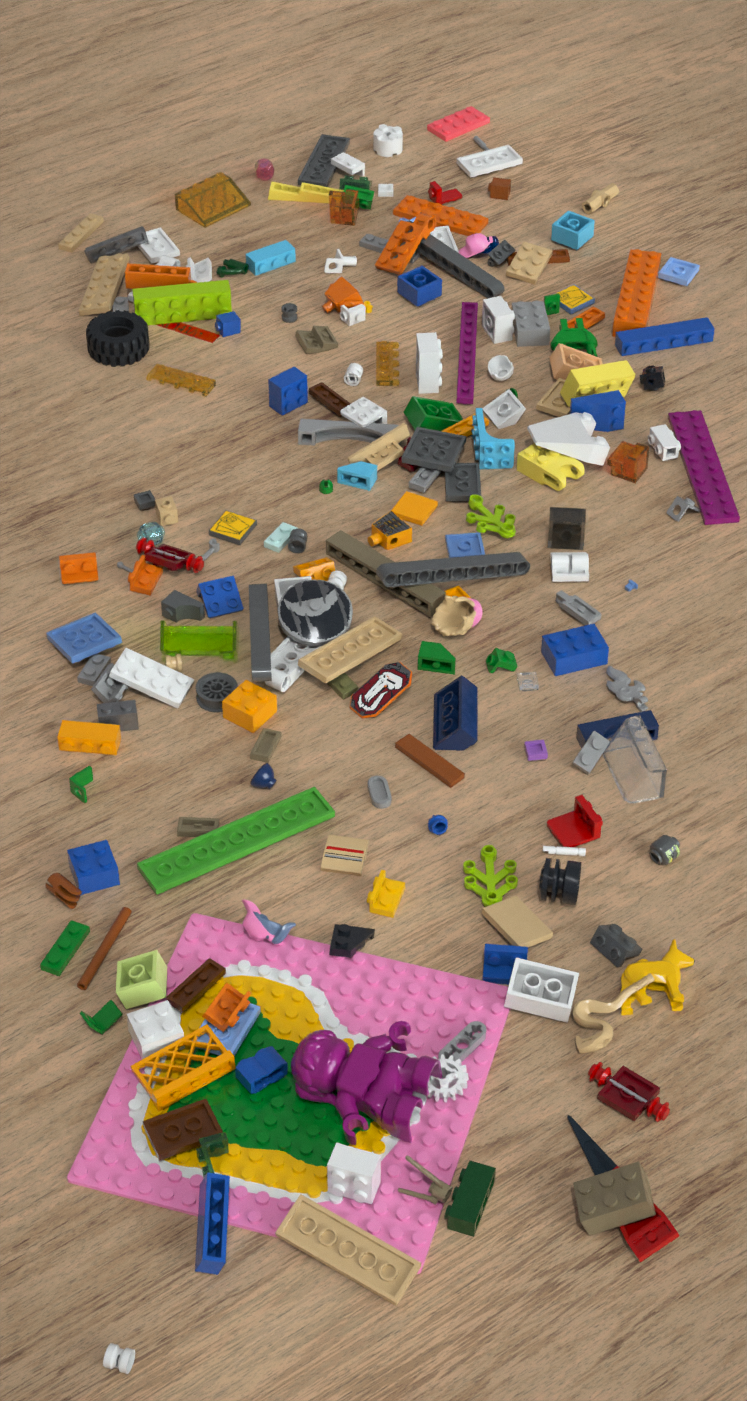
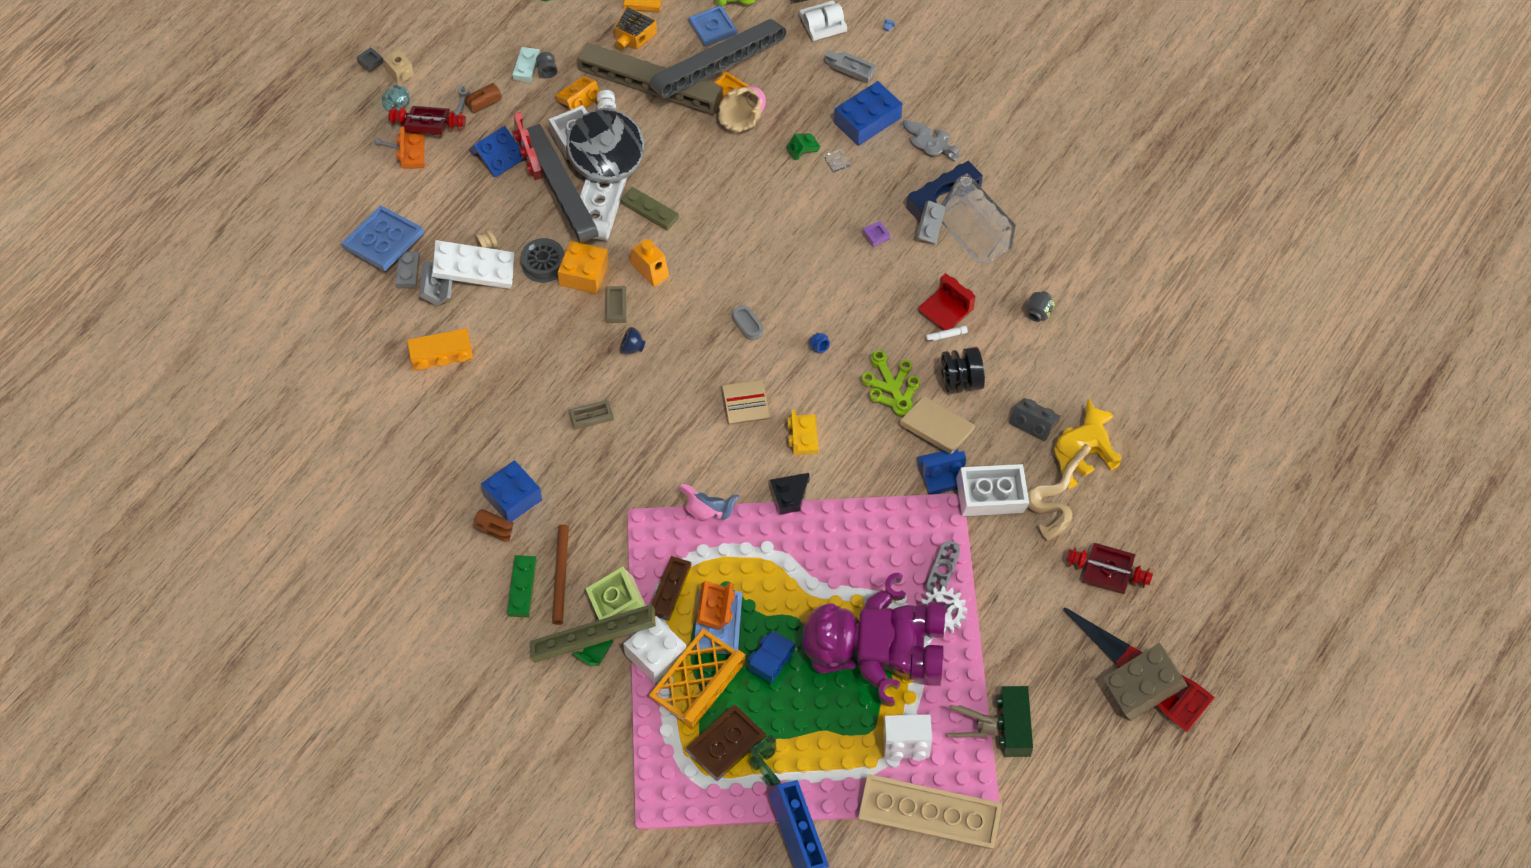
camera: 20 degrees left, 15 degrees up
(78, 568) = (340, 159): orange bracket -> none
(78, 782) = (452, 399): green bracket -> none
(104, 999) = (593, 633): none -> olive plate
(119, 713) = (458, 316): flat silver brick -> none
(180, 606) = (463, 174): dark grey arch -> none
(199, 640) = (503, 206): clear neon green windscreen -> none
(228, 552) = (483, 97): none -> dark orange arm
(232, 527) = (473, 66): tile -> none
(235, 840) = (634, 419): bright green plate -> none
(243, 601) = (532, 166): none -> red wing
(306, 709) = (649, 262): none -> light orange torso
(349, 649) = (654, 176): tan plate -> none
(381, 690) = (703, 211): shield -> none
(430, 760) = (780, 274): dark orange tile -> none
(436, 658) = (740, 160): green slope -> none
(456, 716) = (785, 219): dark blue slope -> none

